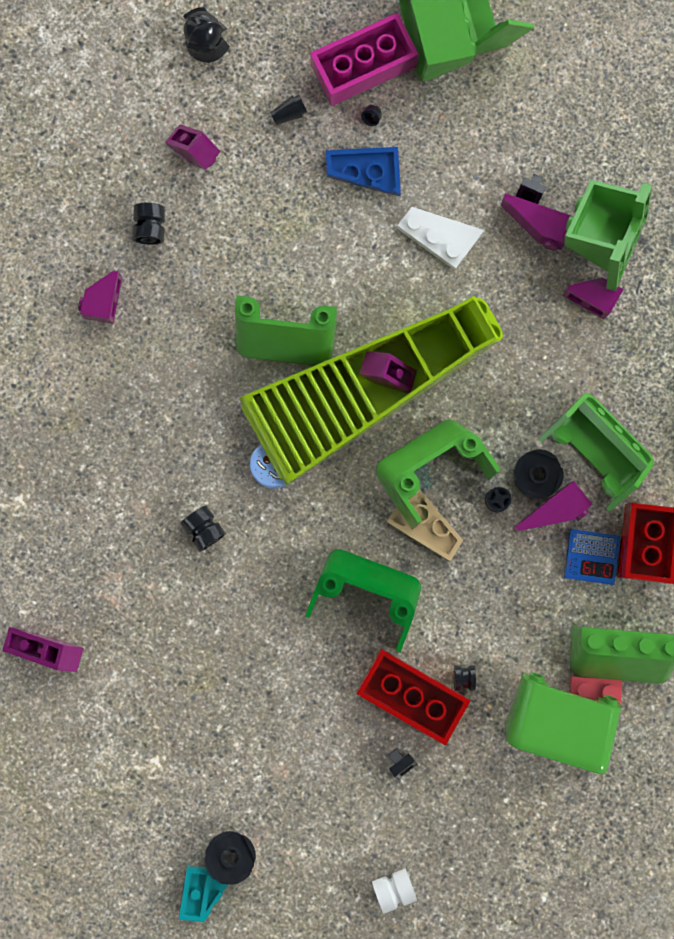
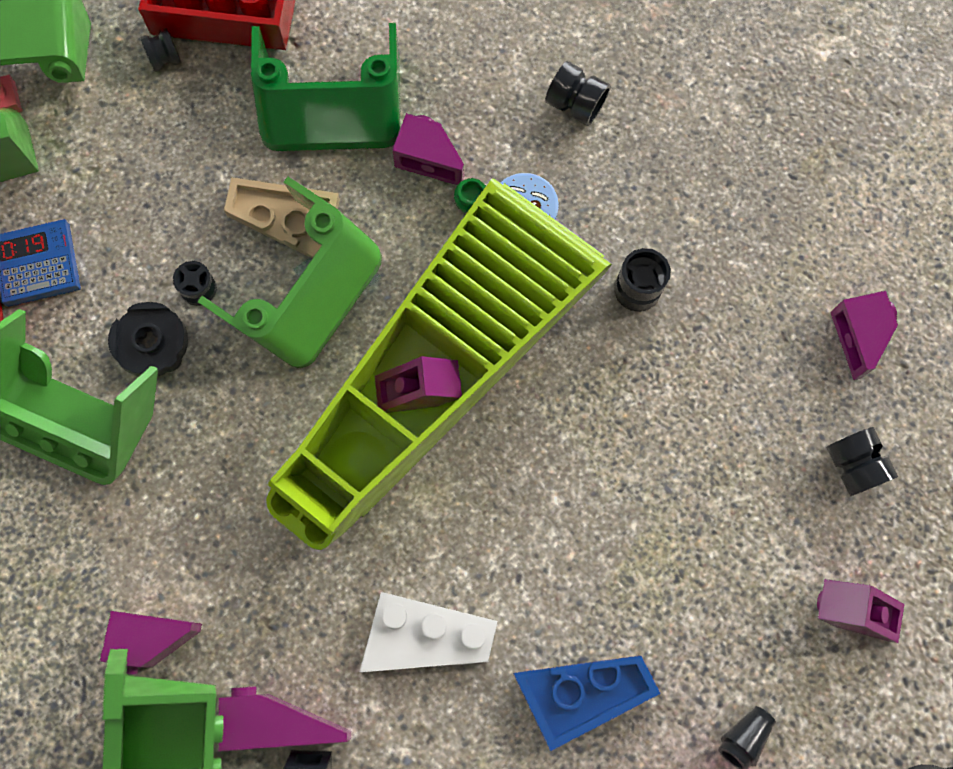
camera: 155 degrees right, 10 degrees down
(223, 384) = (642, 279): none -> black wheel
(283, 339) = (640, 364): bright green windscreen -> none
(302, 489) = (467, 193): none -> green plate
(317, 530) = (427, 150): none -> magenta slope
(561, 507) = (106, 296): magenta slope -> none

